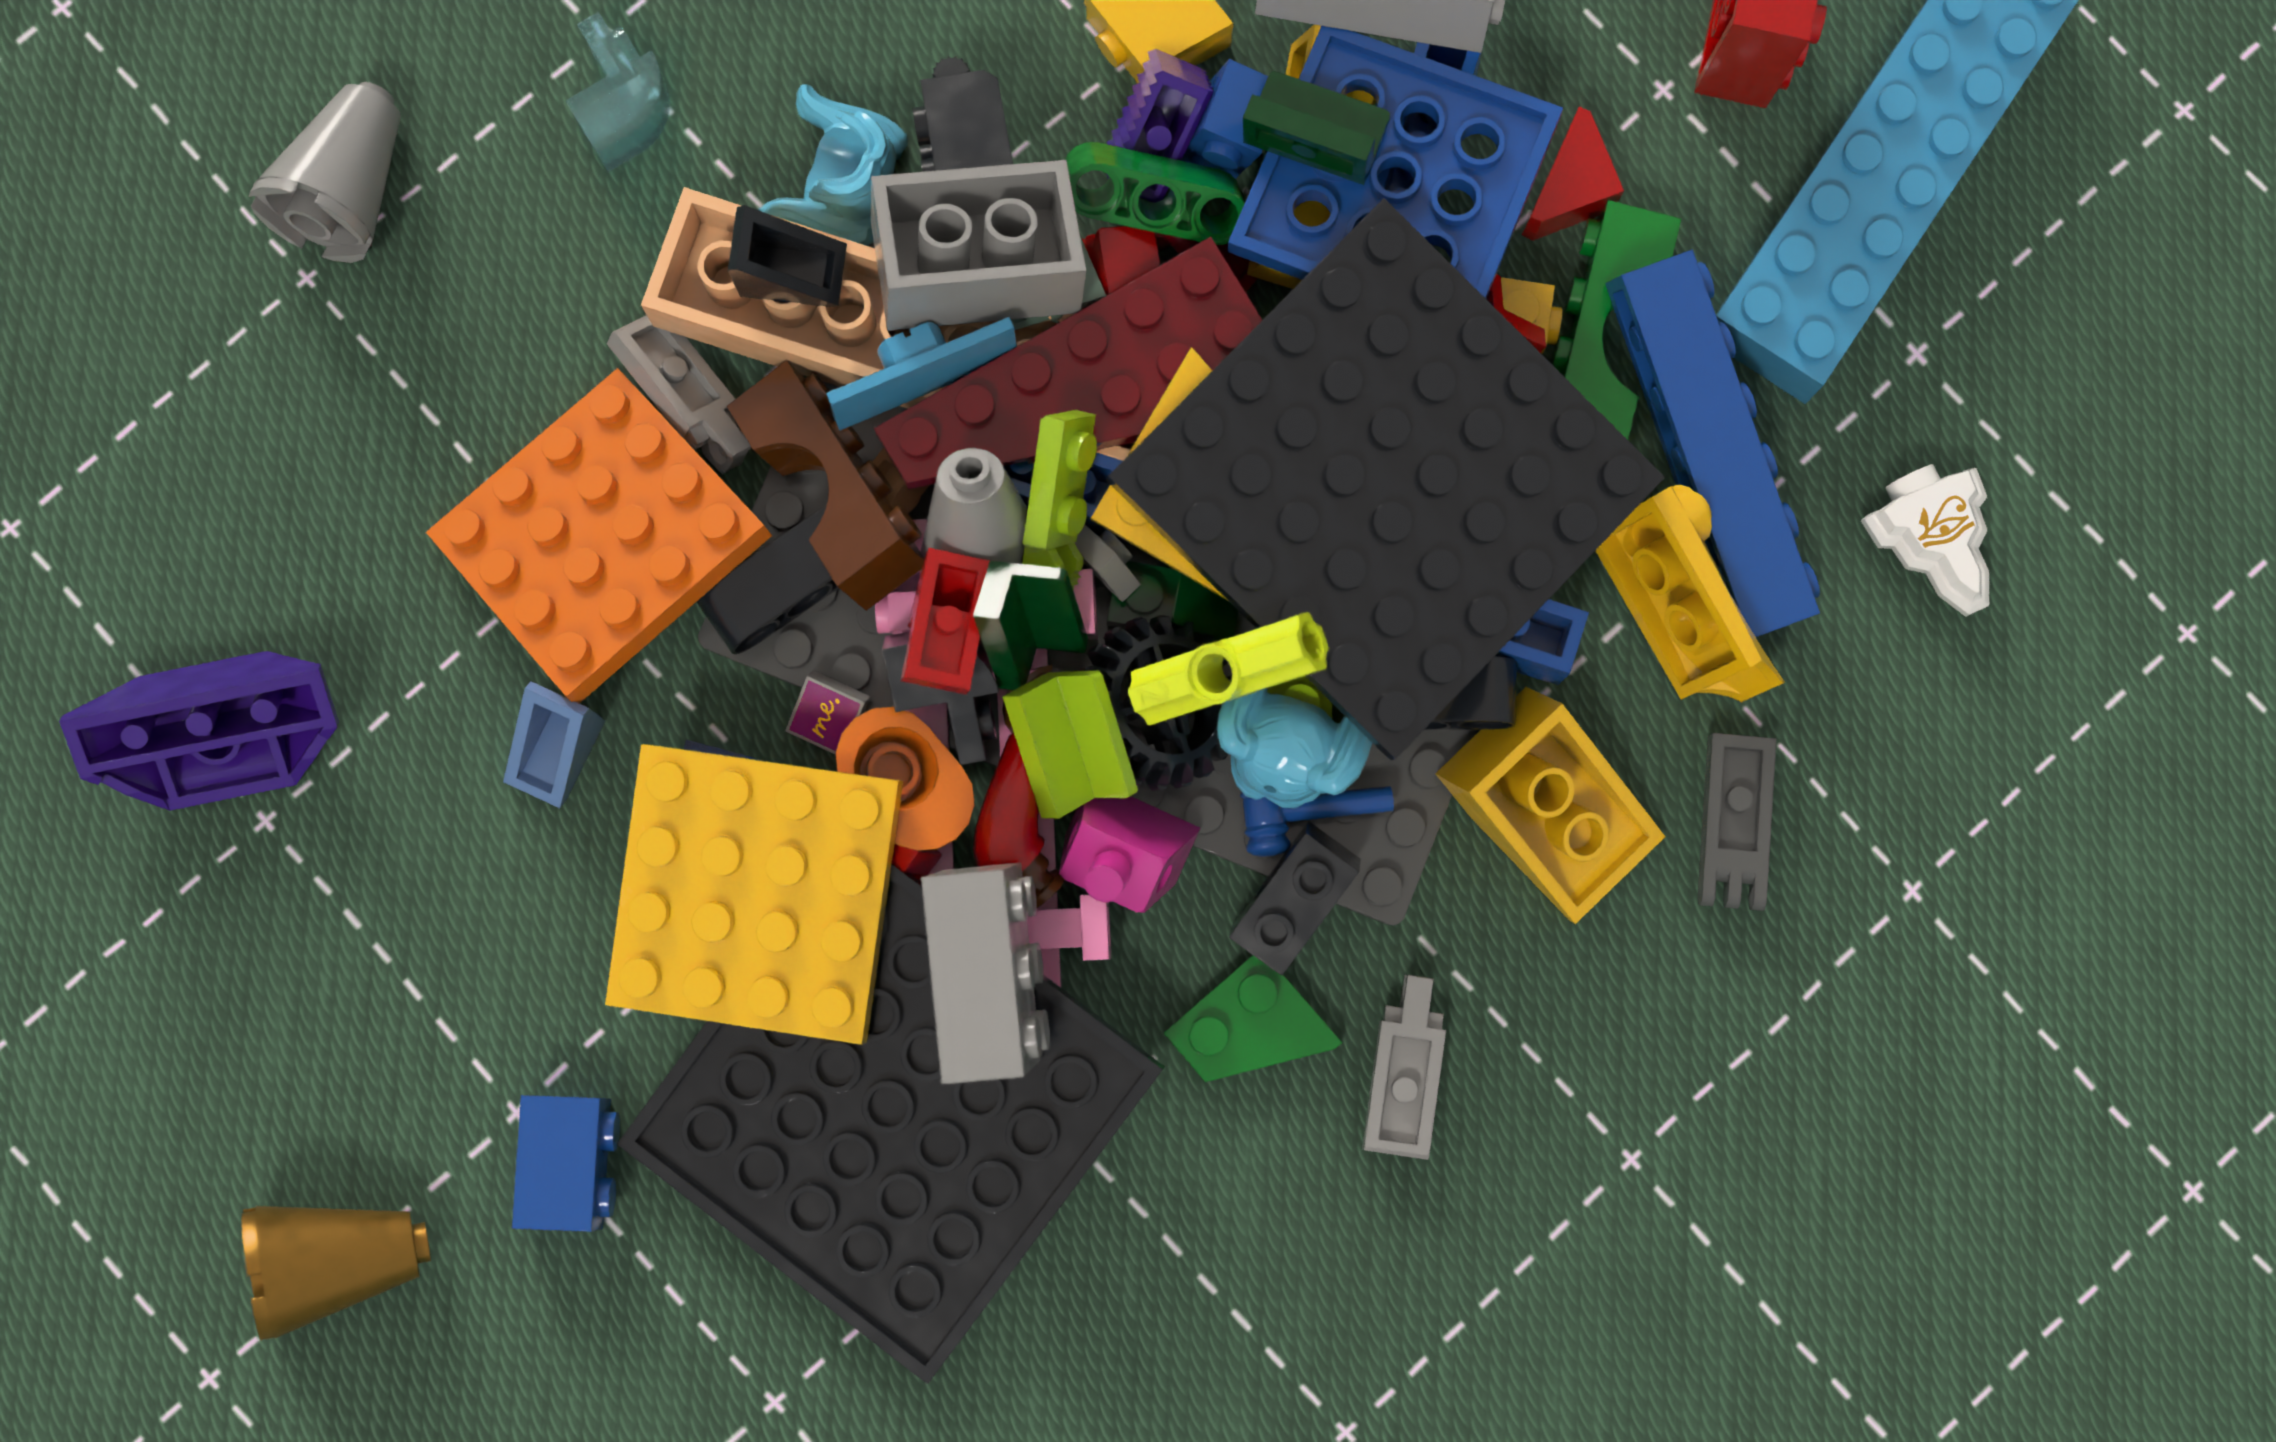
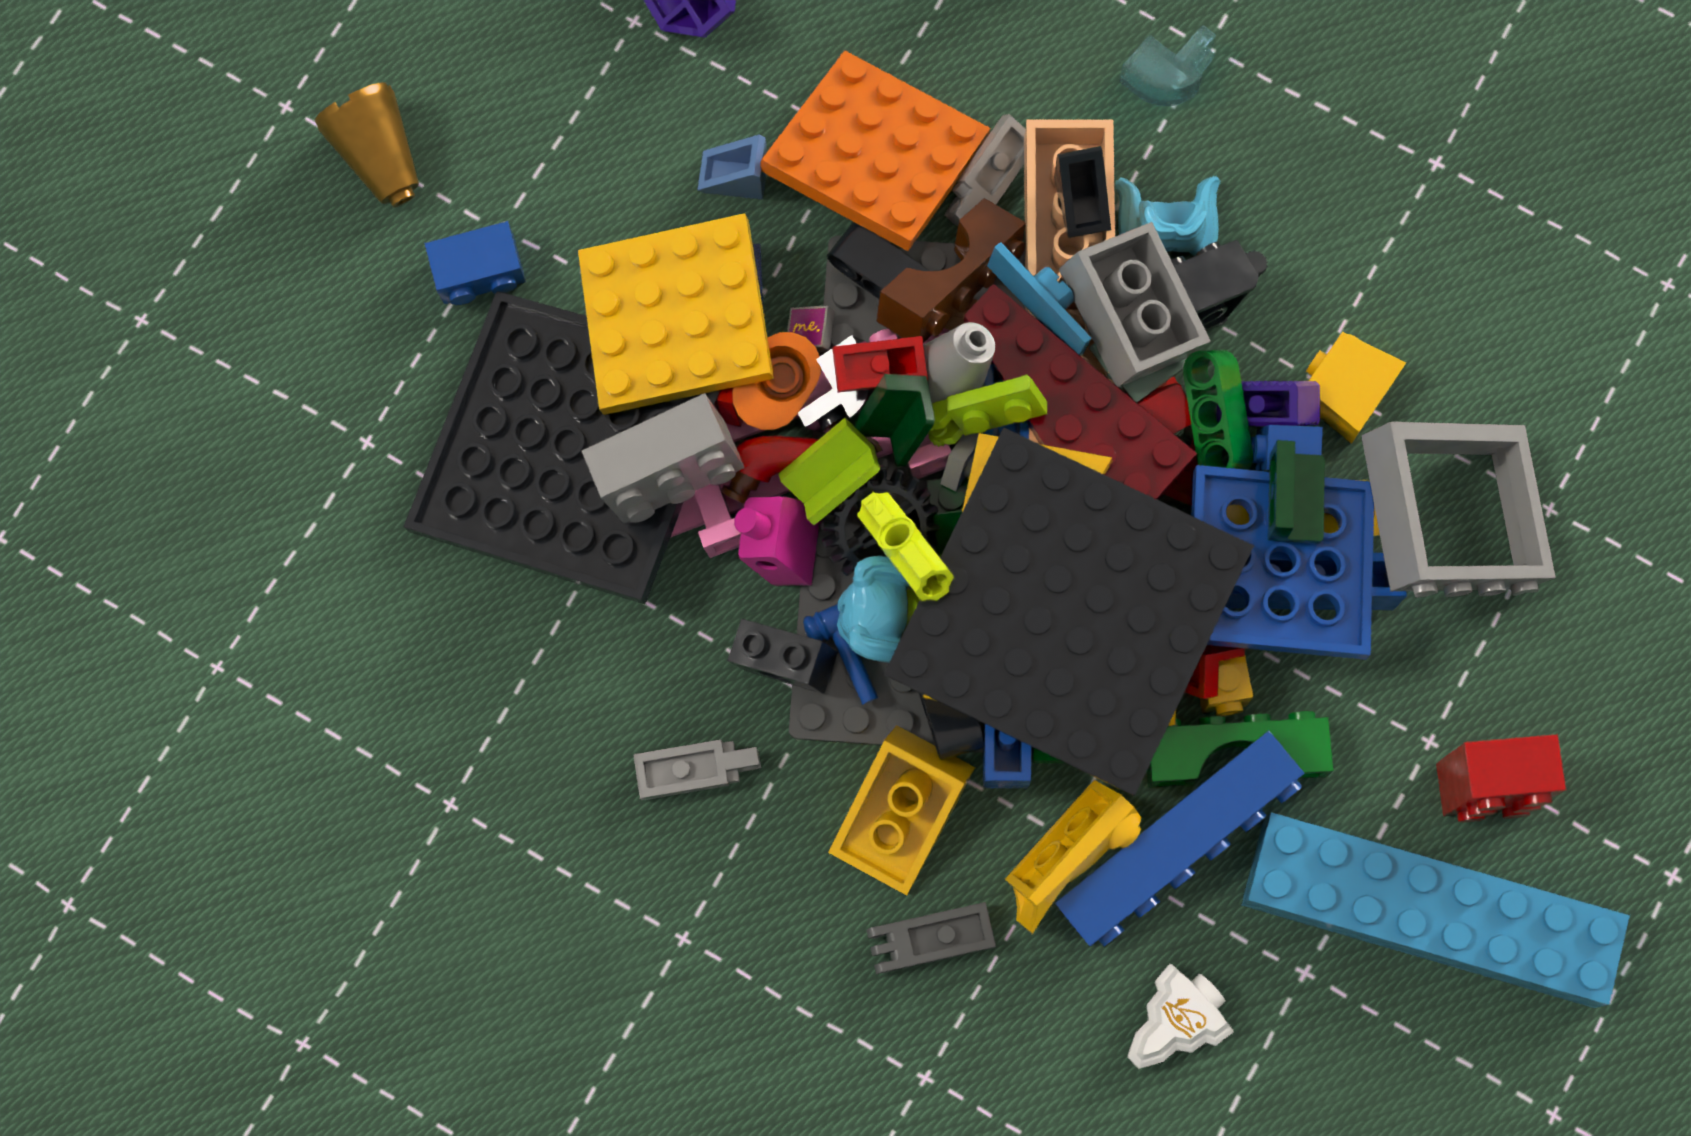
camera: 80 degrees right, 5 degrees down
(1249, 1025) = (693, 659): green wing -> none
(1577, 182) = (1335, 693): red slope -> none

